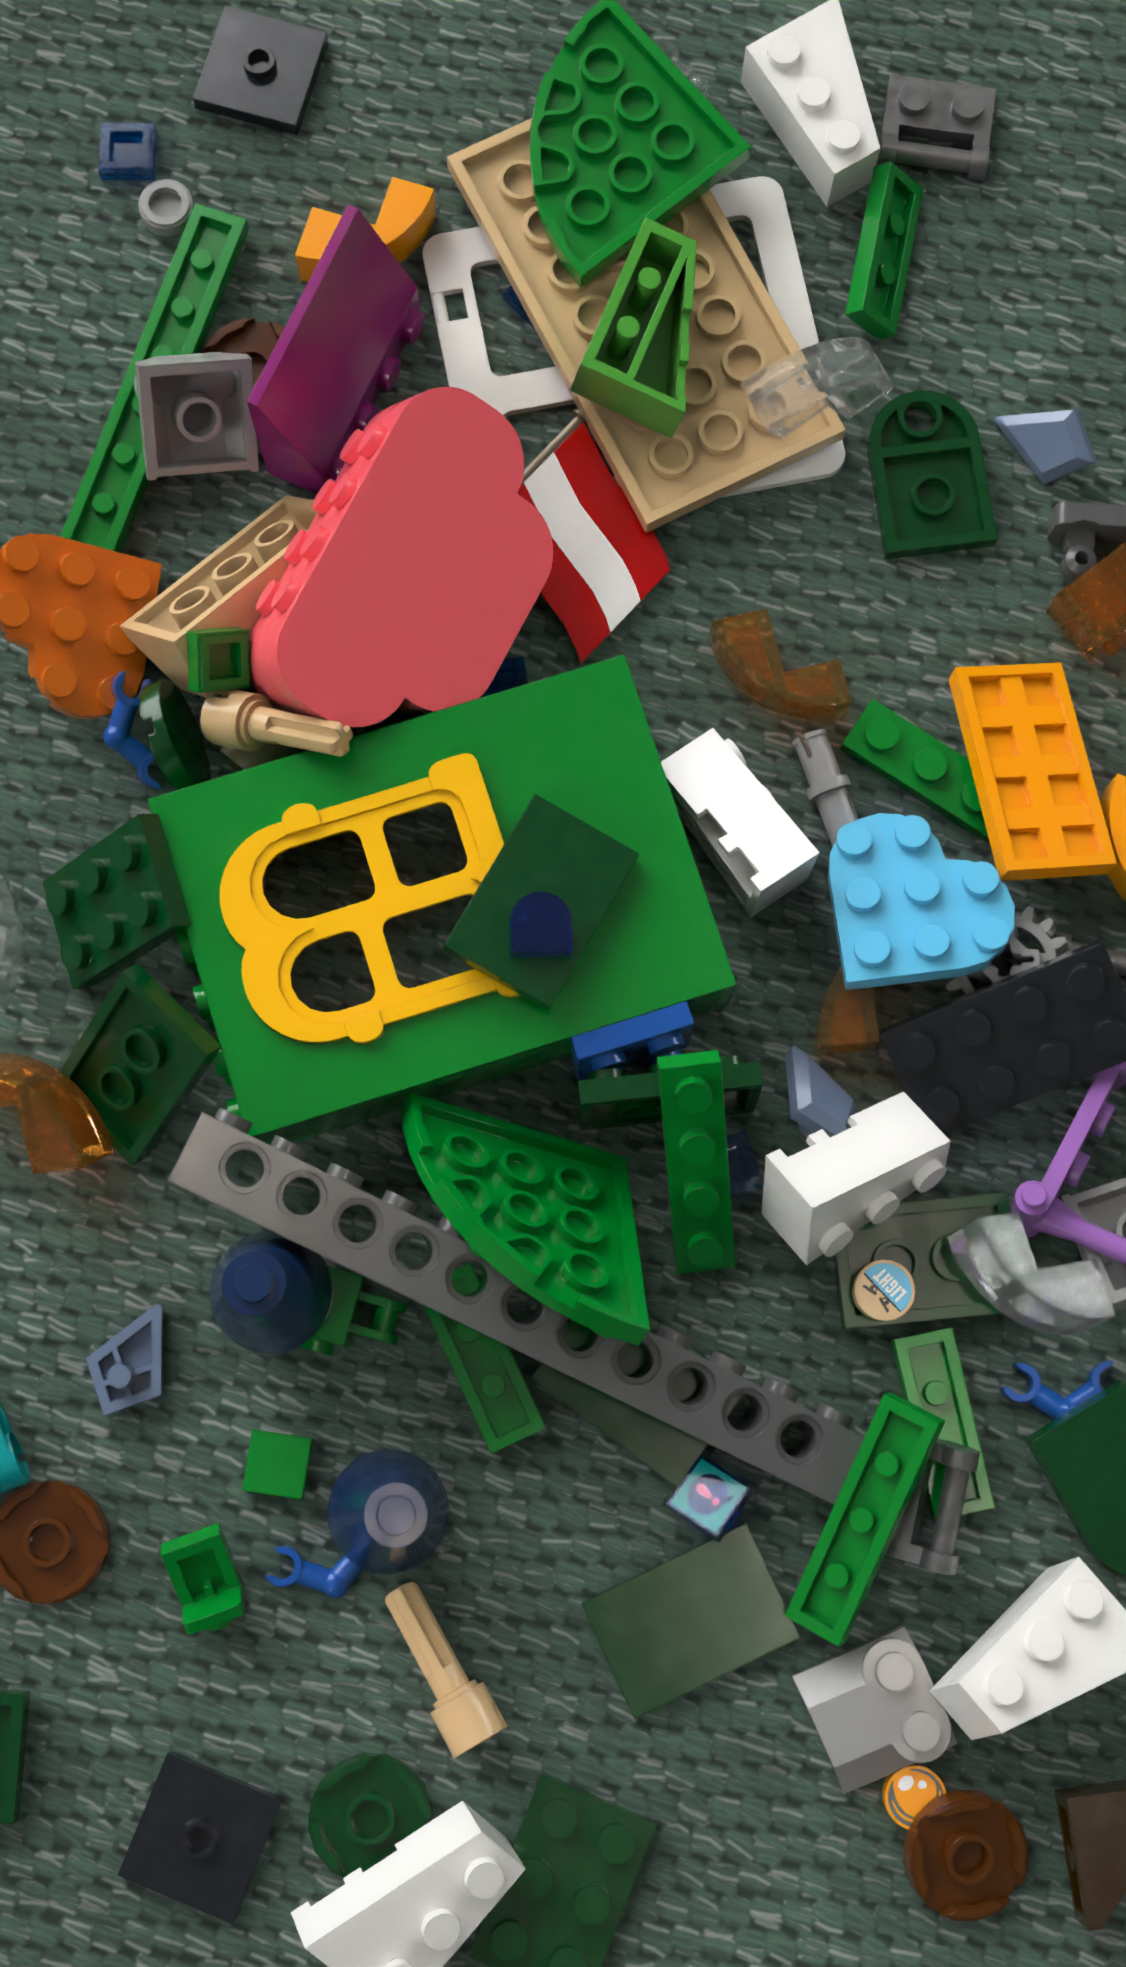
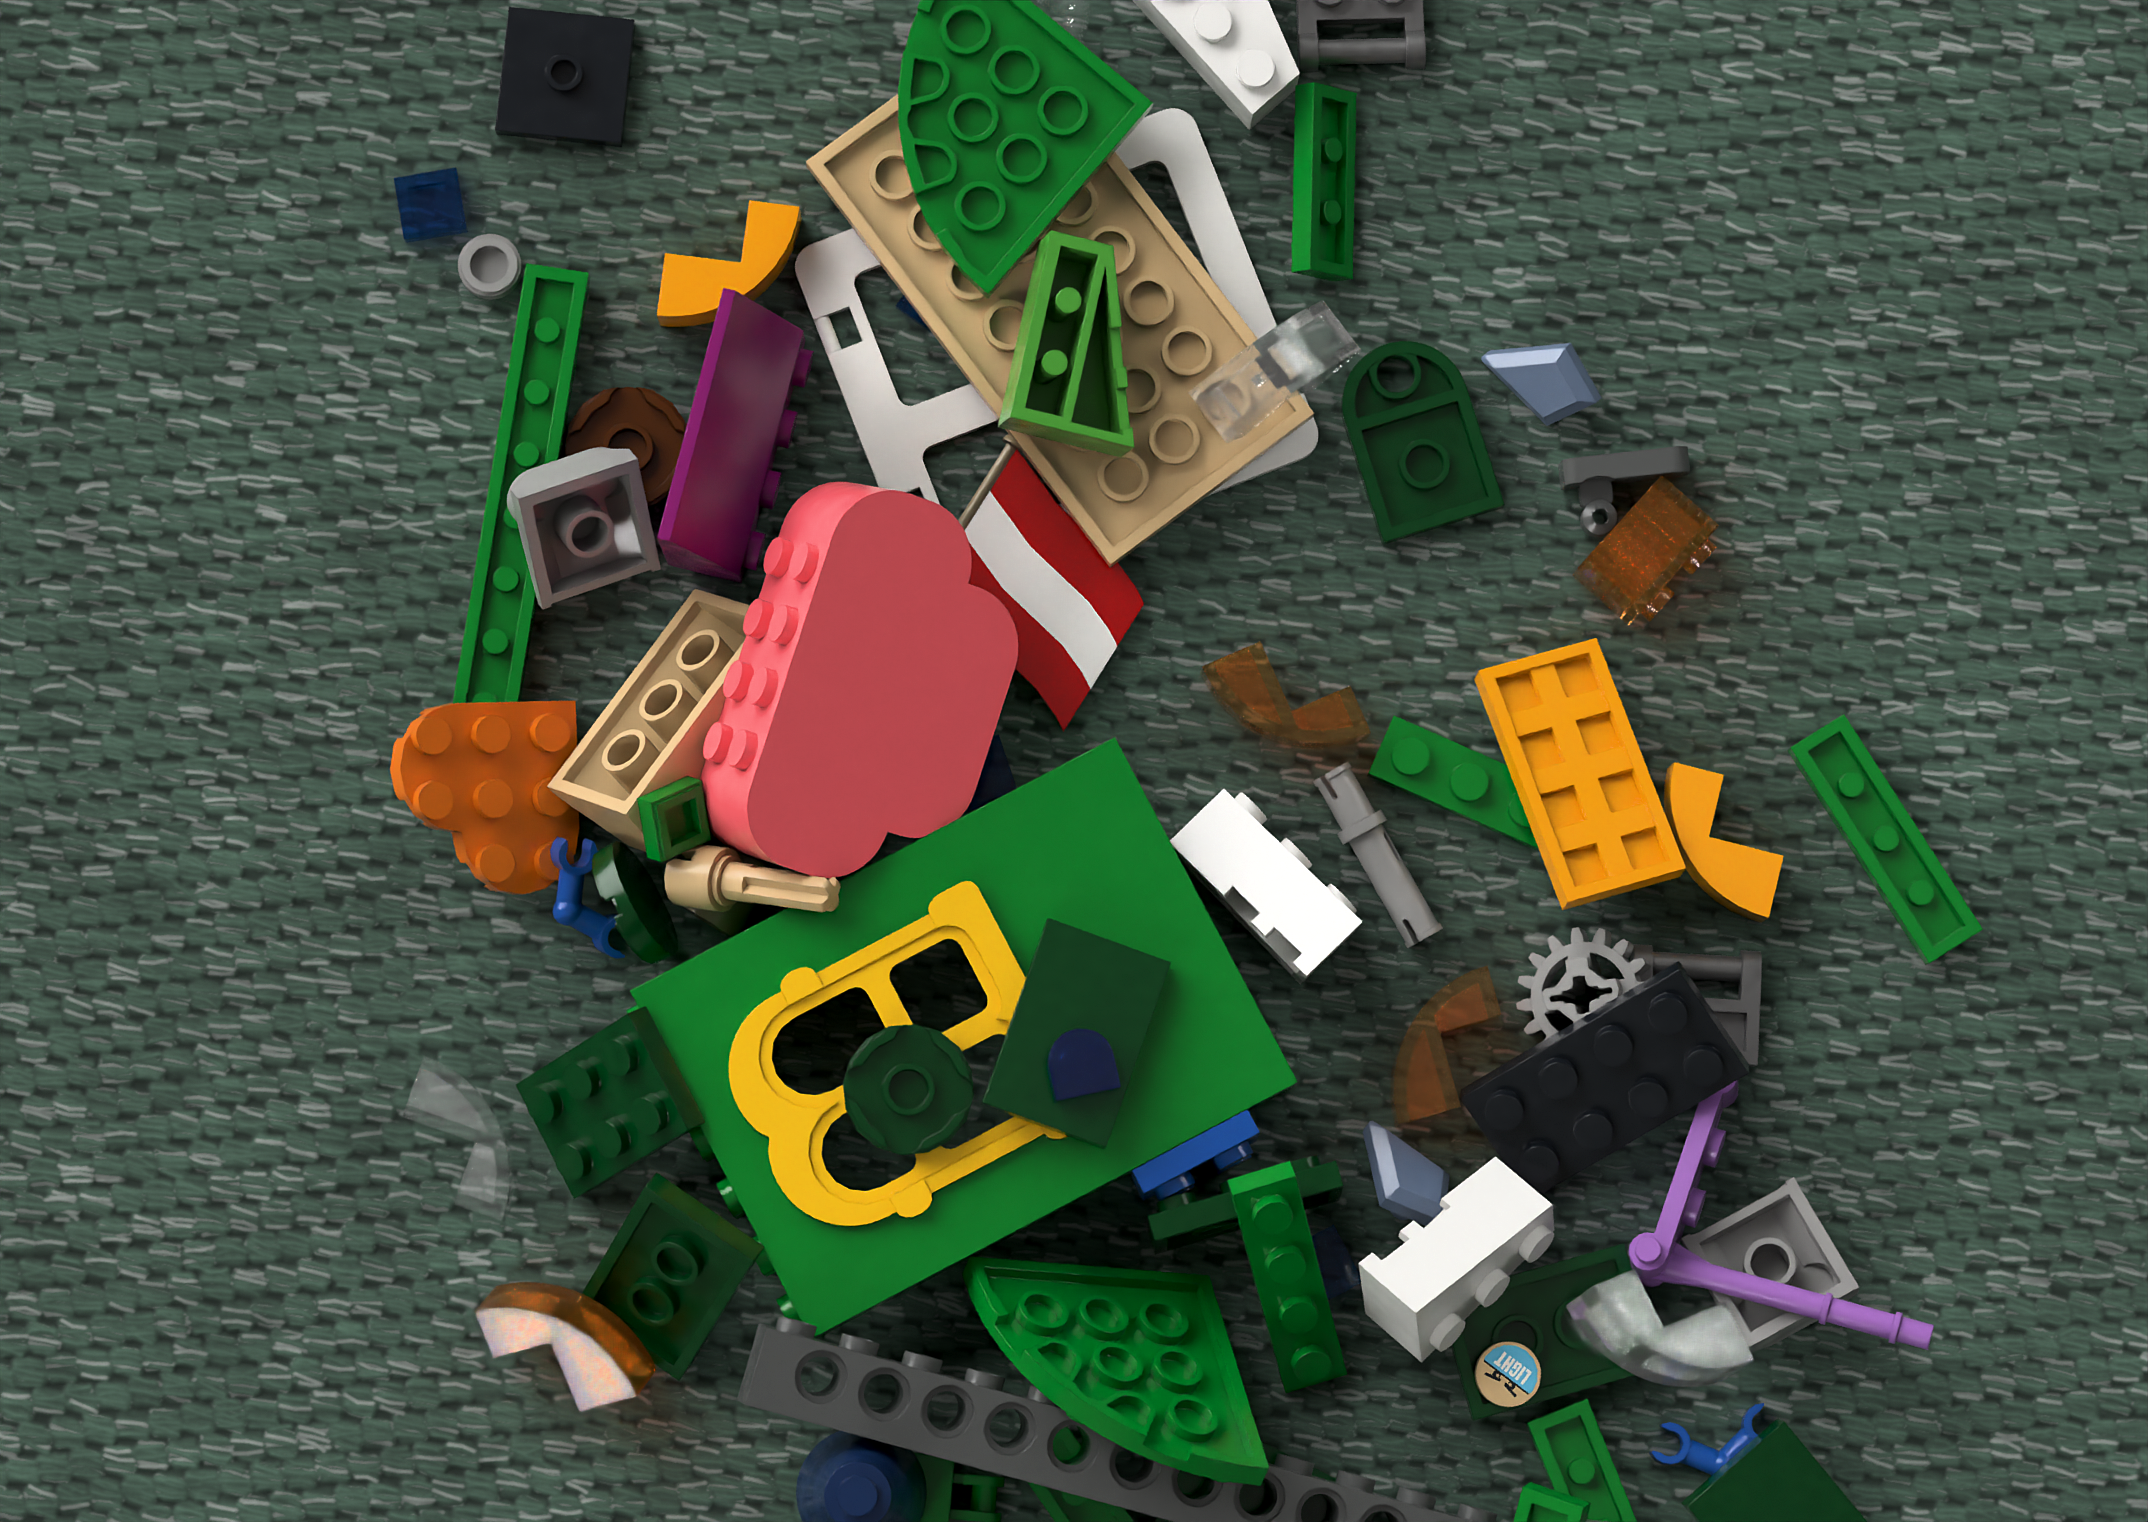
camera: 15 degrees left, 5 degrees up
(379, 926) = (908, 1089): none -> dark green tile
(909, 909) = (1468, 956): medium azure plate -> none

